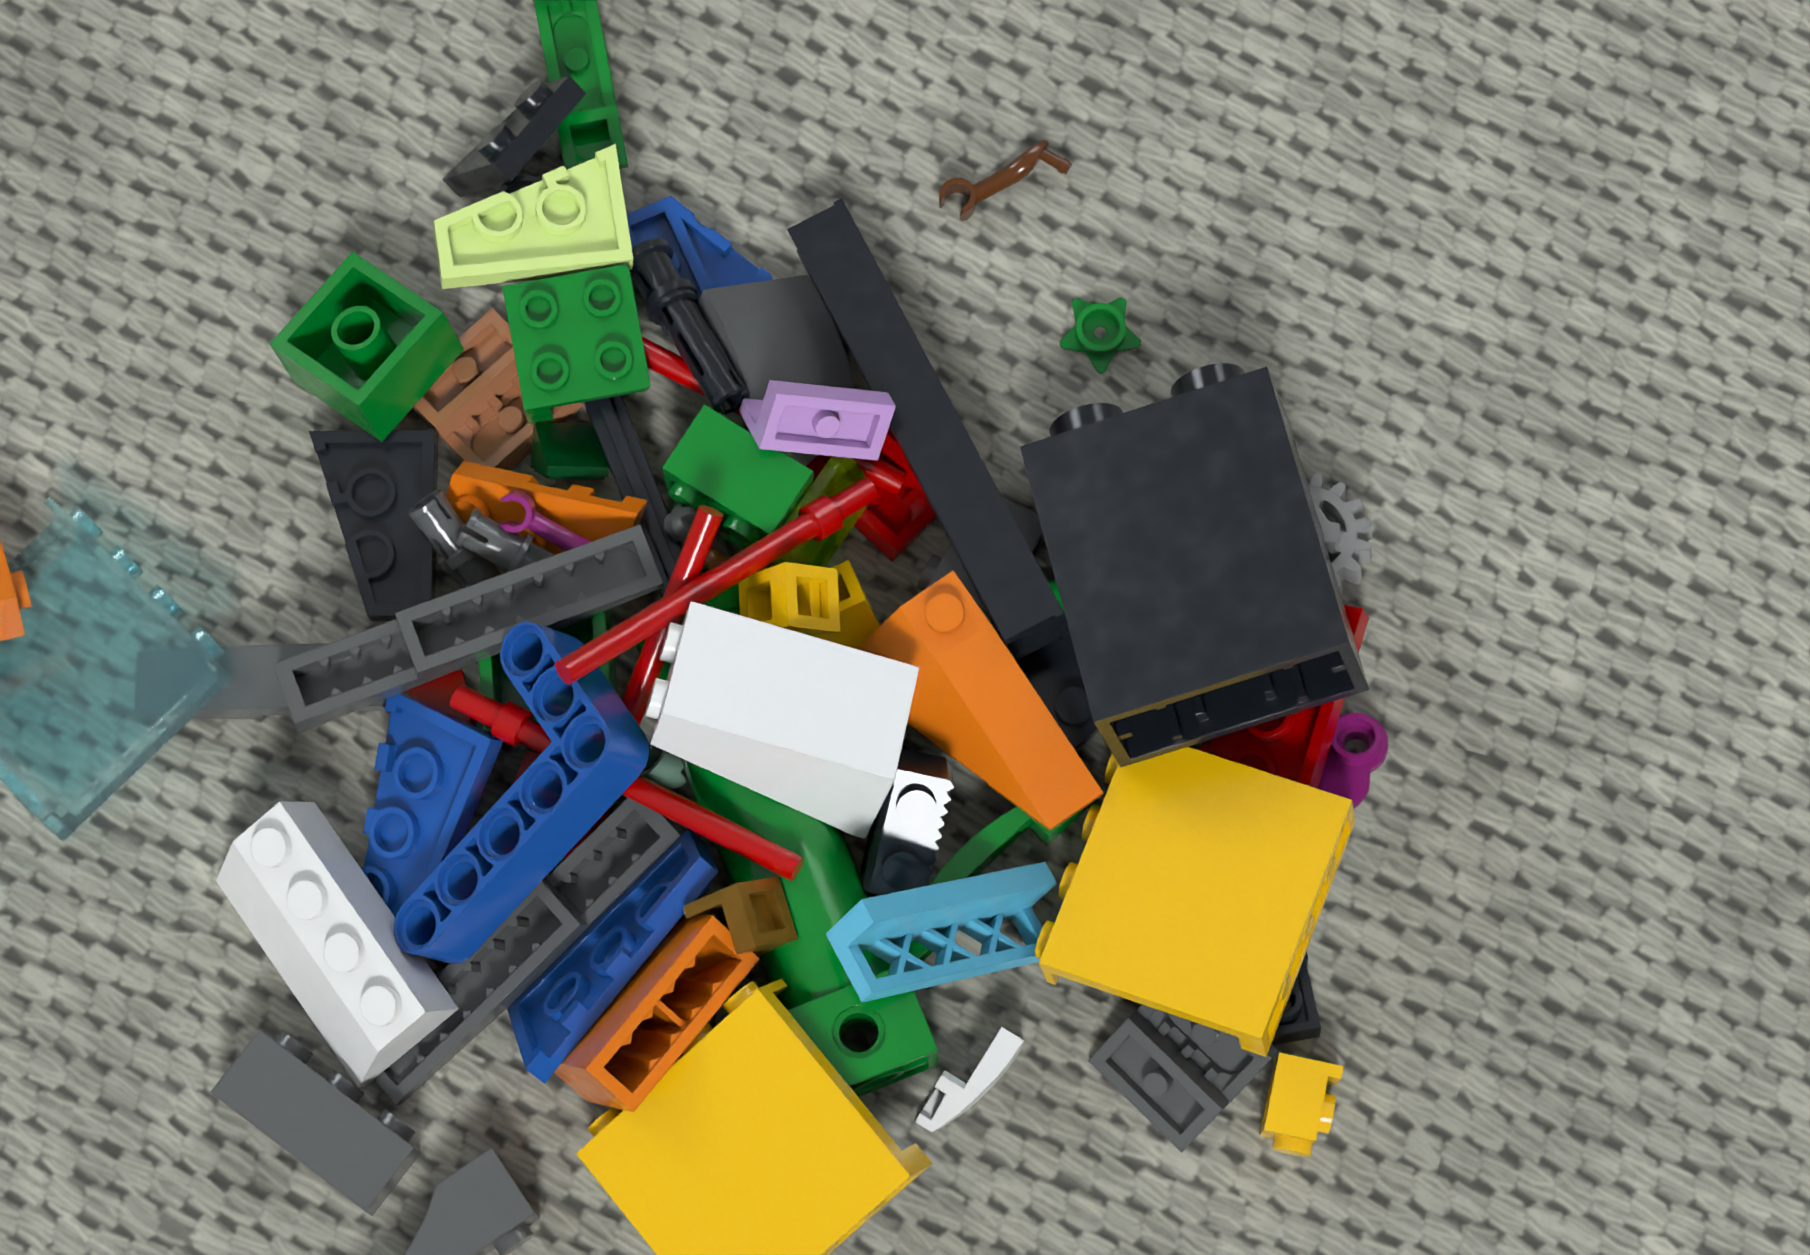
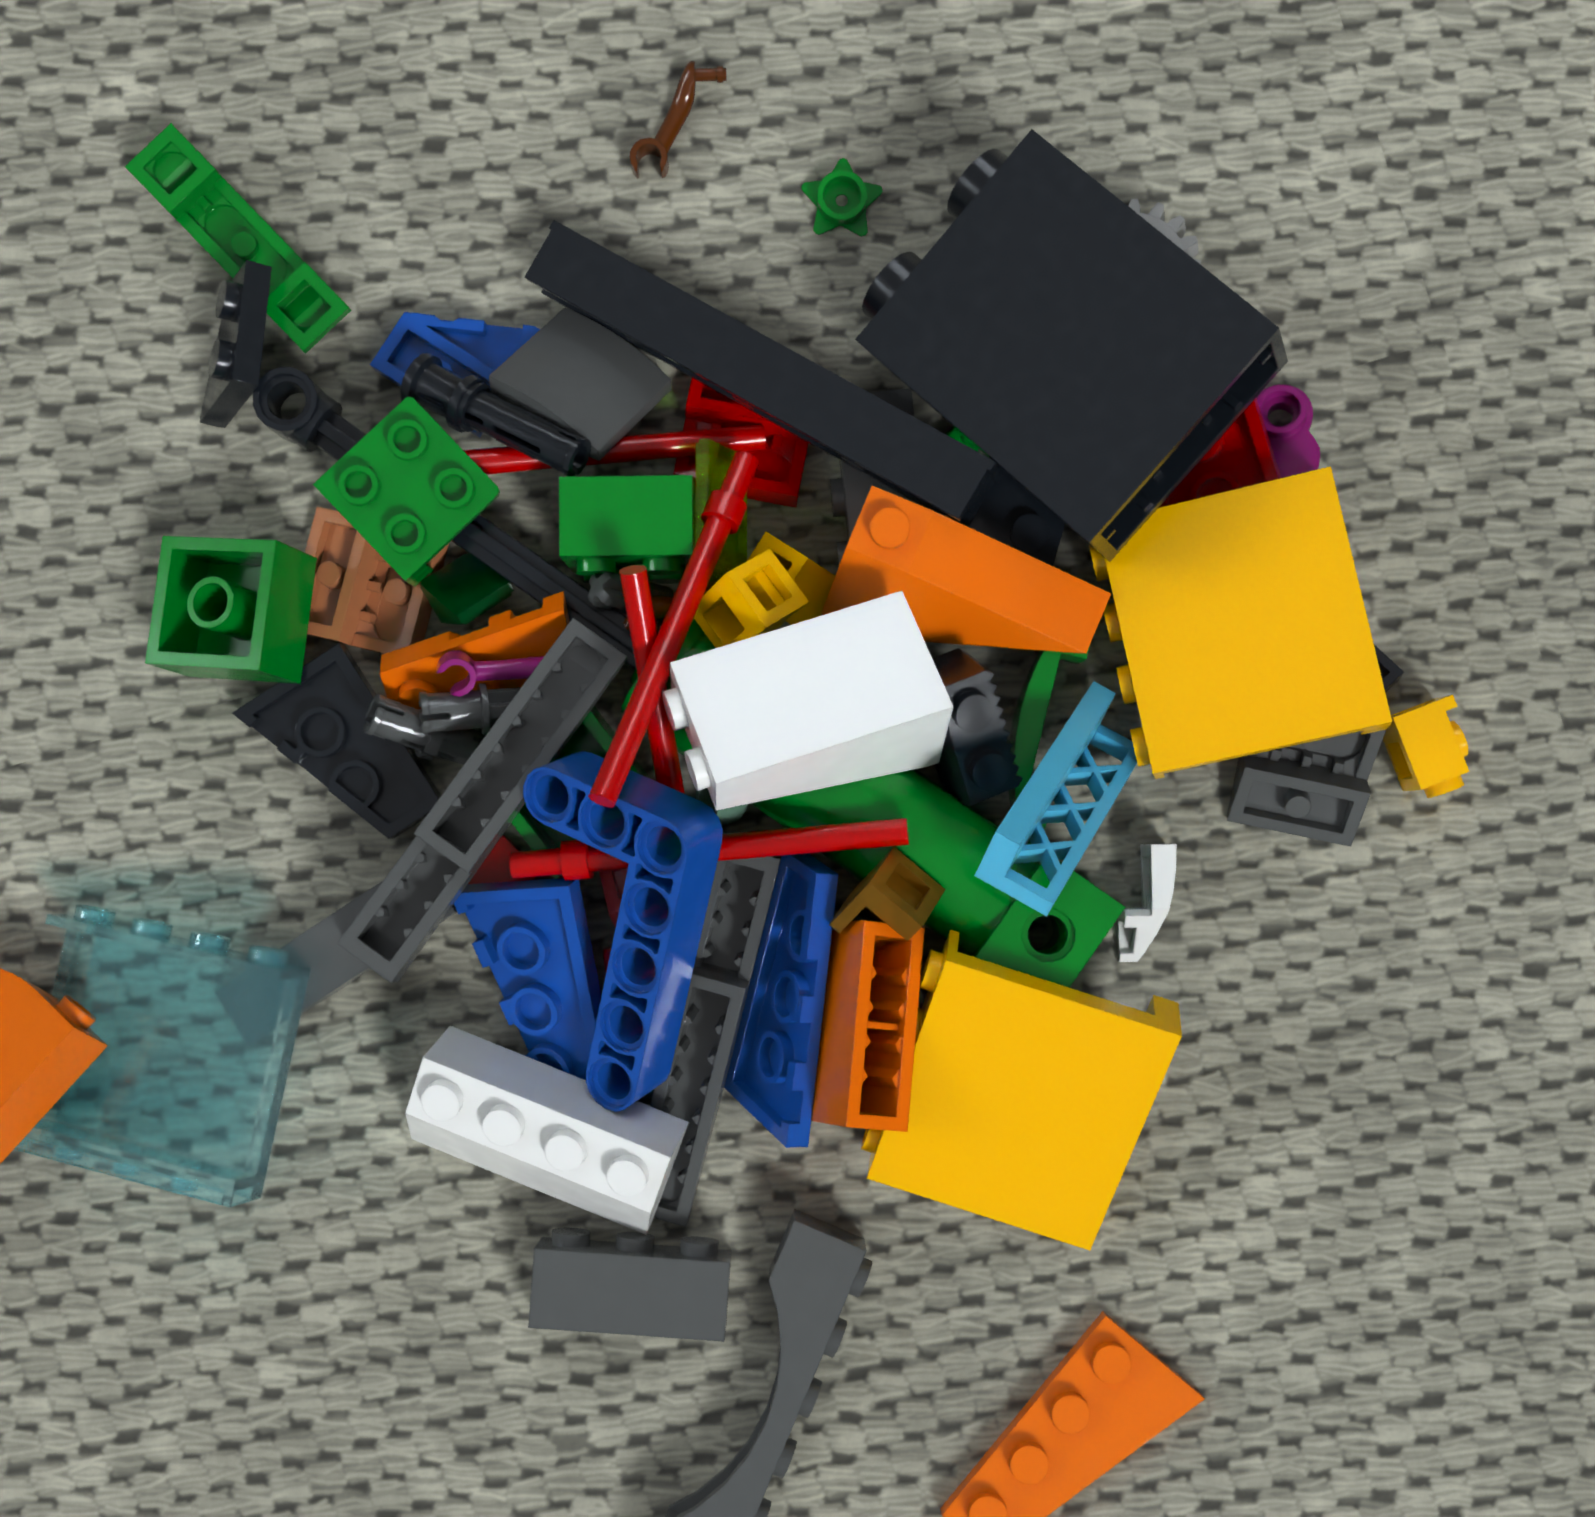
camera: 35 degrees left, 10 degrees up
(543, 231) = (313, 414): yellowish green wing -> none
(819, 420) = (667, 426): lavender panel -> none

